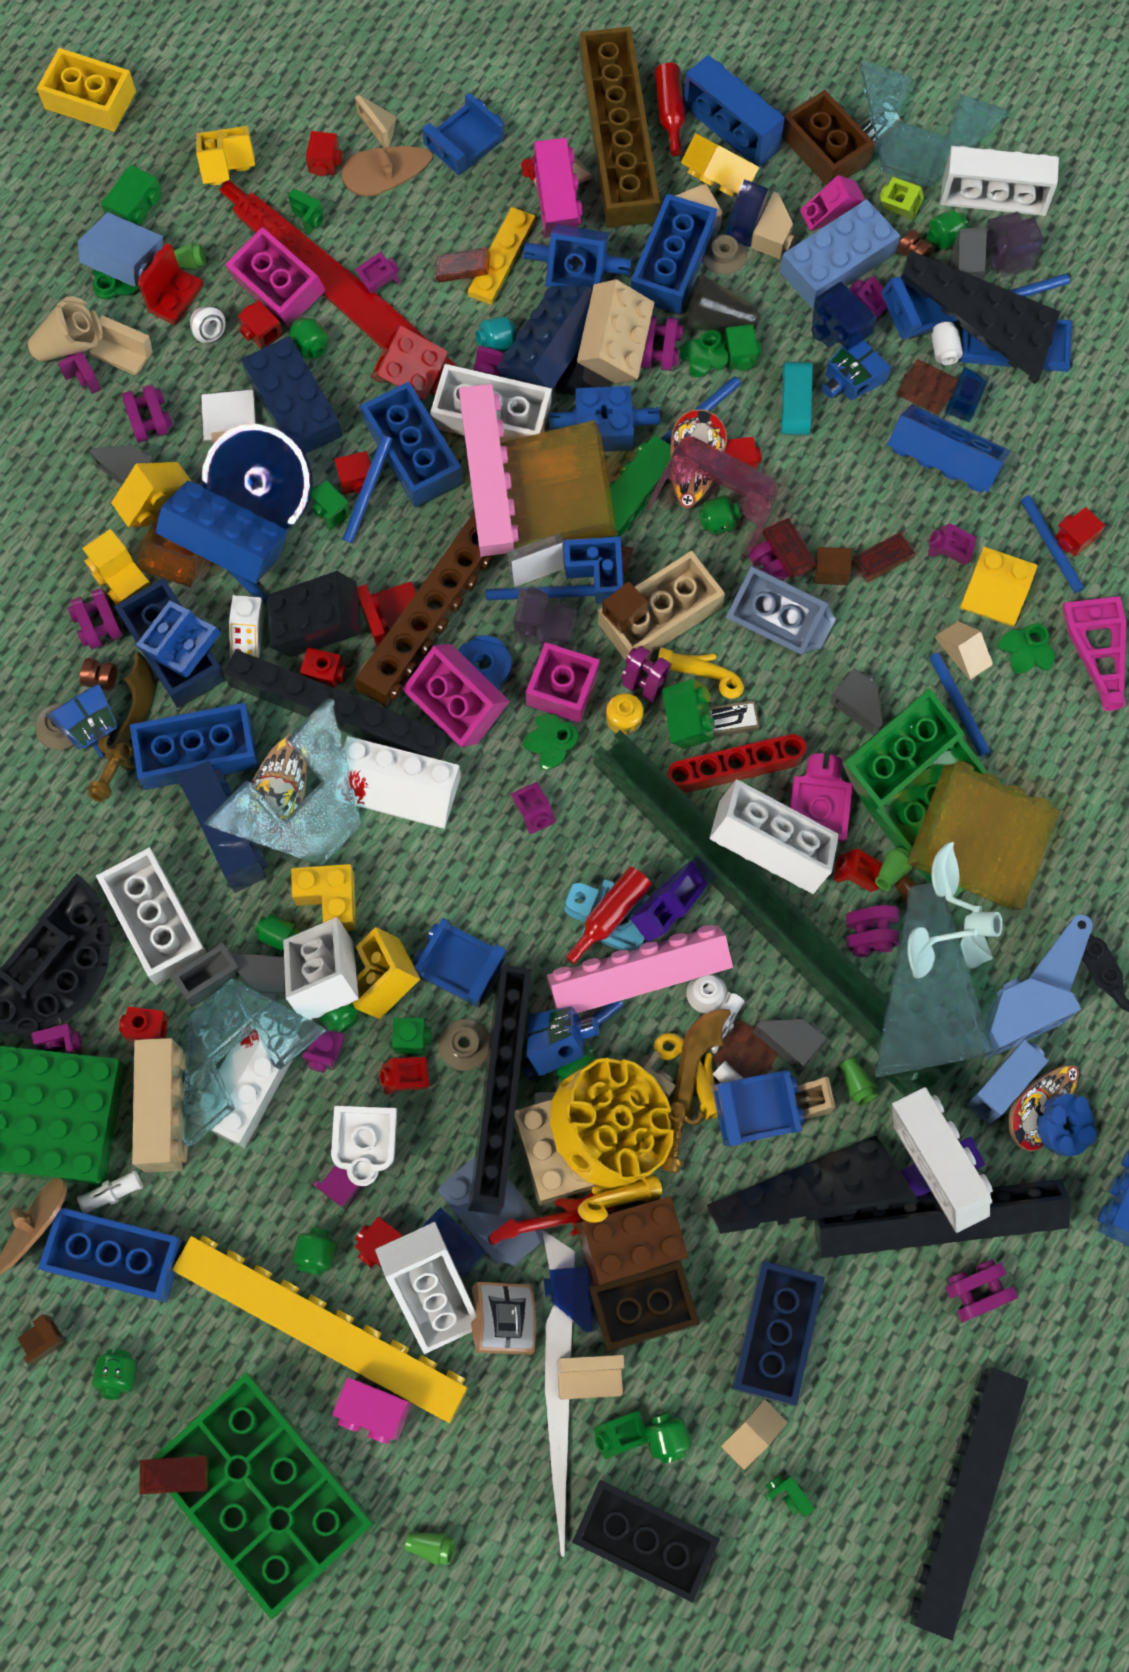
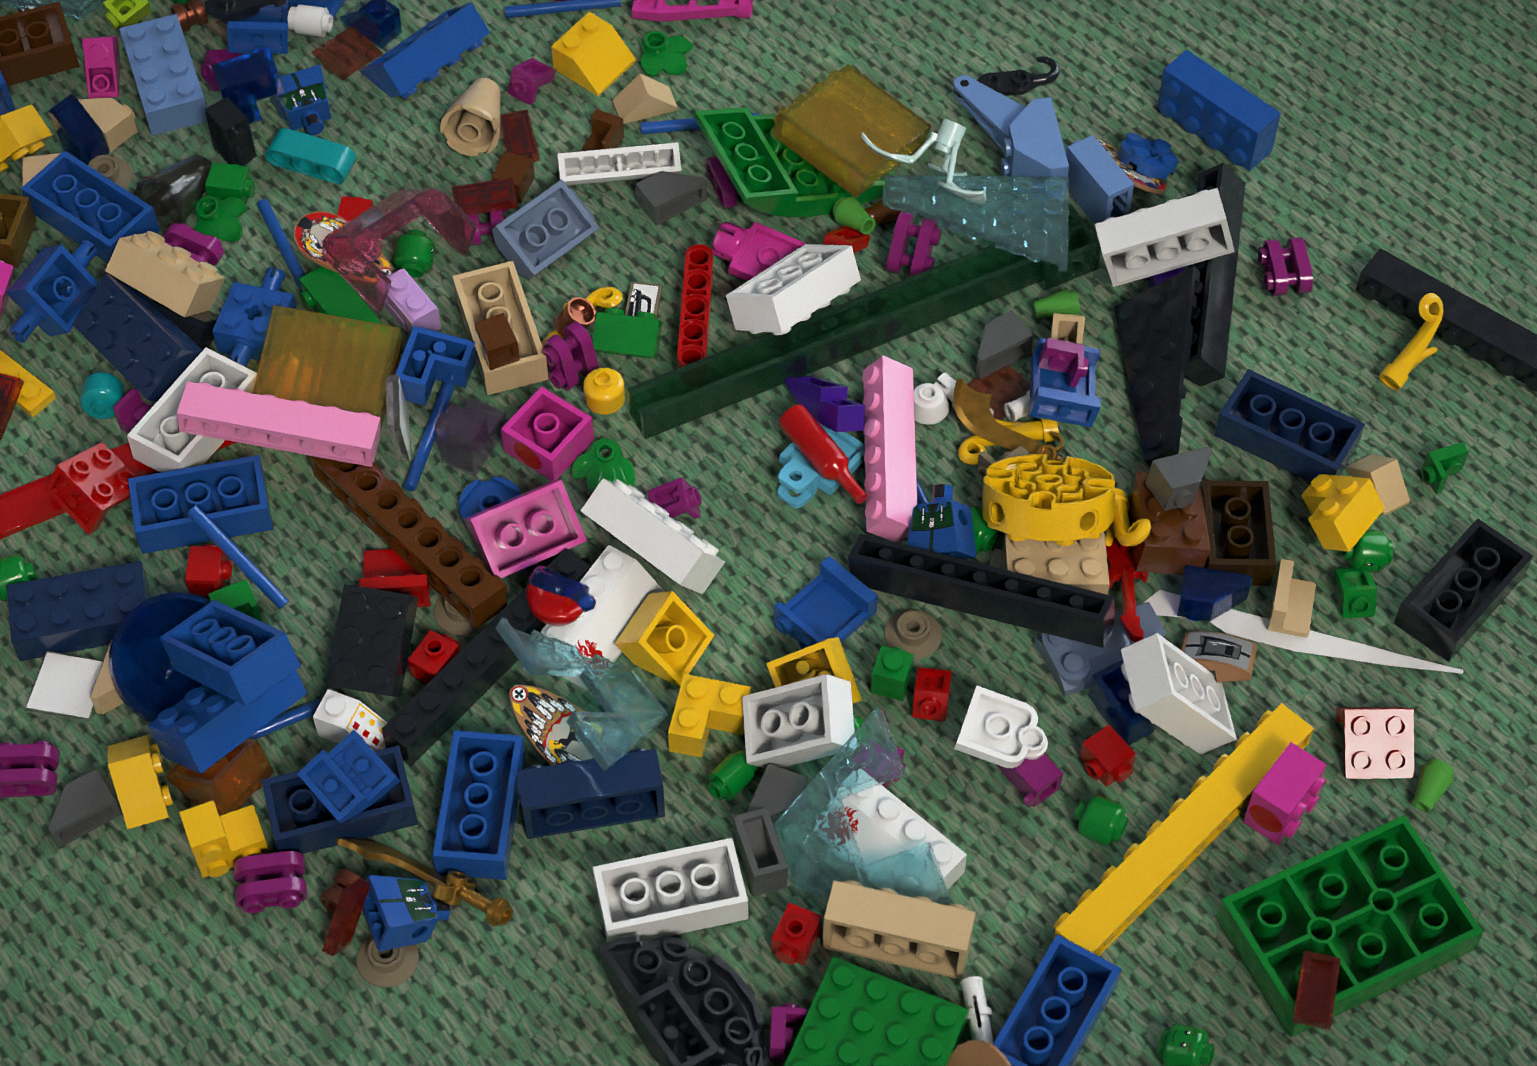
camera: 75 degrees left, 15 degrees down
(68, 681) = (346, 917): none -> clear red tile
(245, 509) = (230, 652): none -> blue brick
(382, 738) = (556, 598): none -> piece
(393, 840) = (664, 637): none -> yellow slope
(466, 1485) = (1377, 742): none -> bracket
(478, 798) = (654, 534): none -> white brick
(661, 1237) = (1178, 477): none -> dark grey slope
(662, 530) = (410, 304): none -> lavender brick
(687, 668) = (577, 310): none -> copper wheel
(689, 1405) = (1341, 509): none -> yellow brick
(775, 1095) = (1064, 357): none -> magenta bracket
(788, 326) = (230, 132): none -> black brick
(875, 650) = (618, 163): none -> white brick
(886, 512) = (474, 119): none -> tan cone
(908, 628) = (606, 131): none -> reddish brown panel
(921, 1443) = (1397, 372): none -> yellow plant

